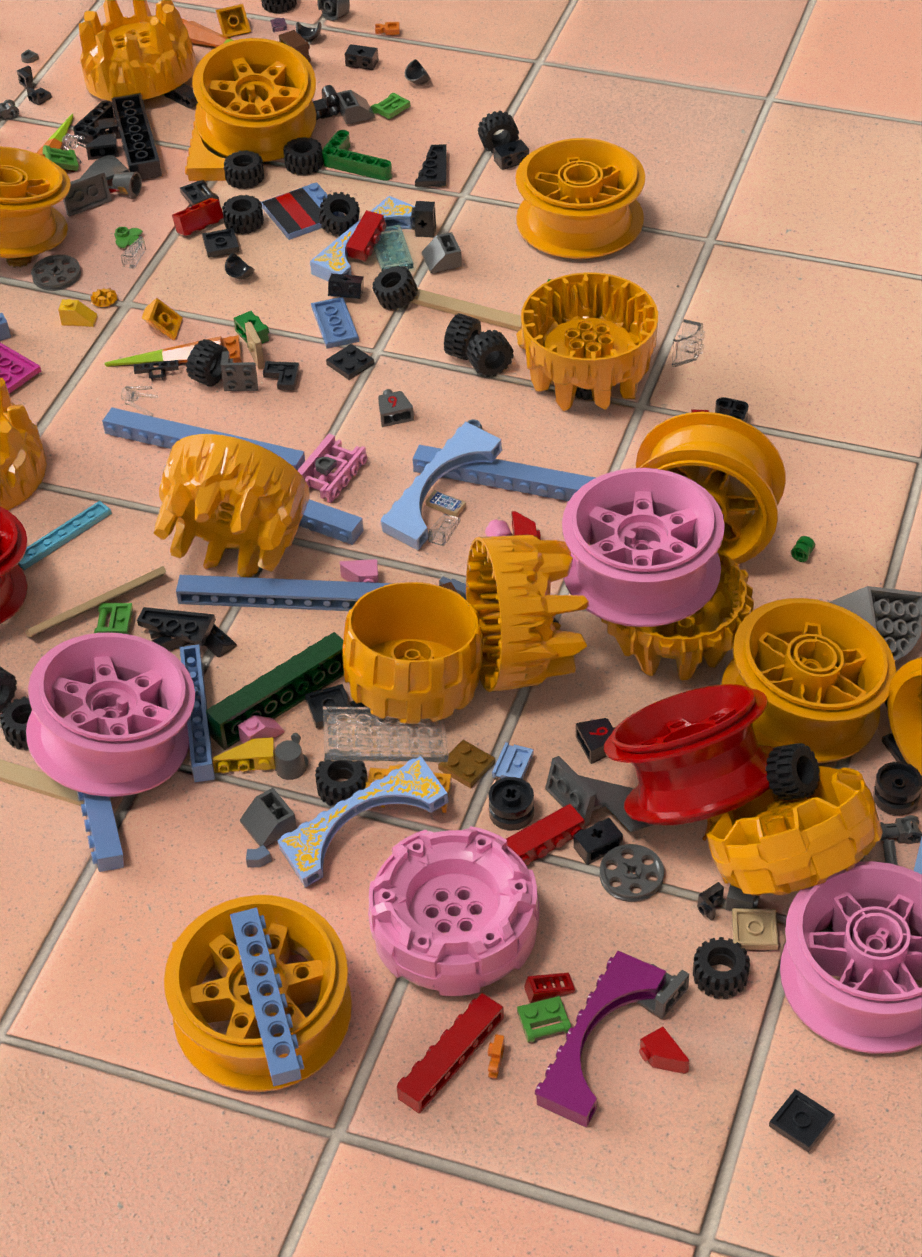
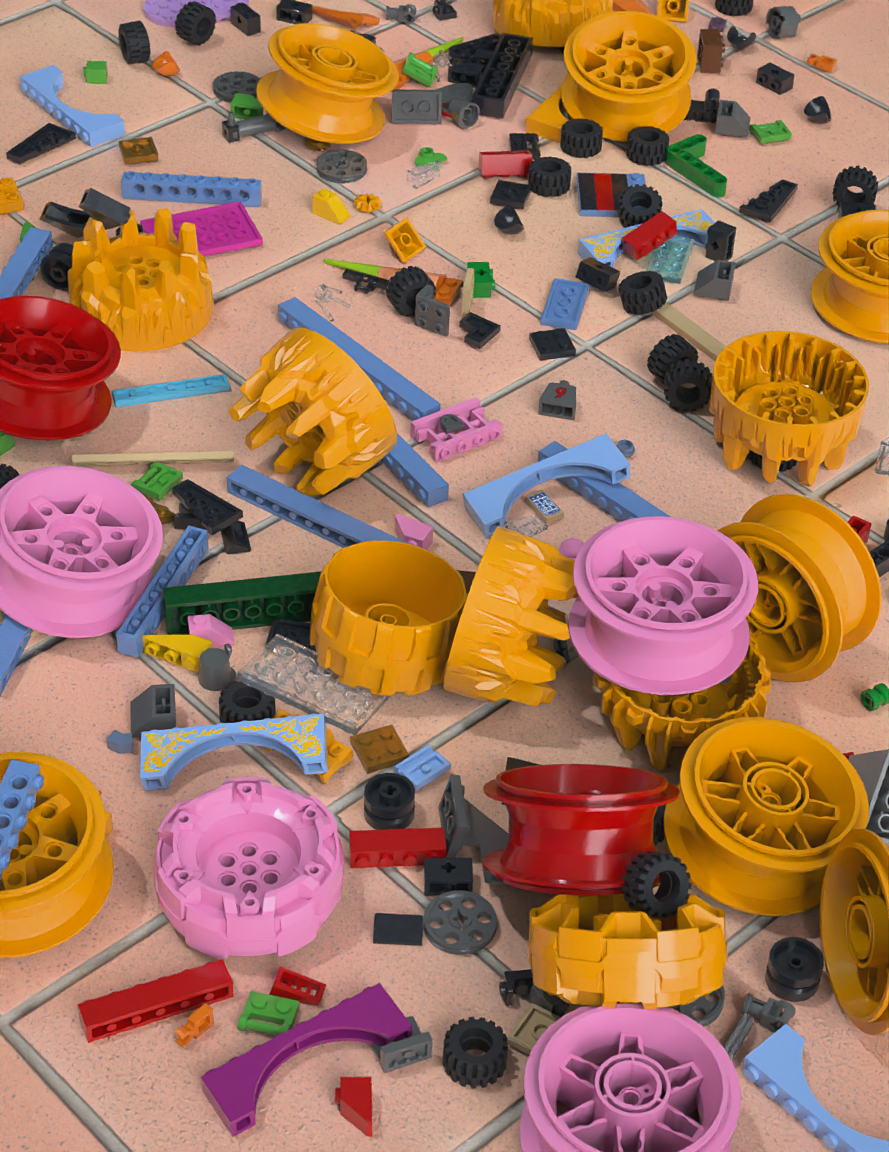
camera: 25 degrees right, 5 degrees down
(590, 901) = (398, 929): none -> black slope

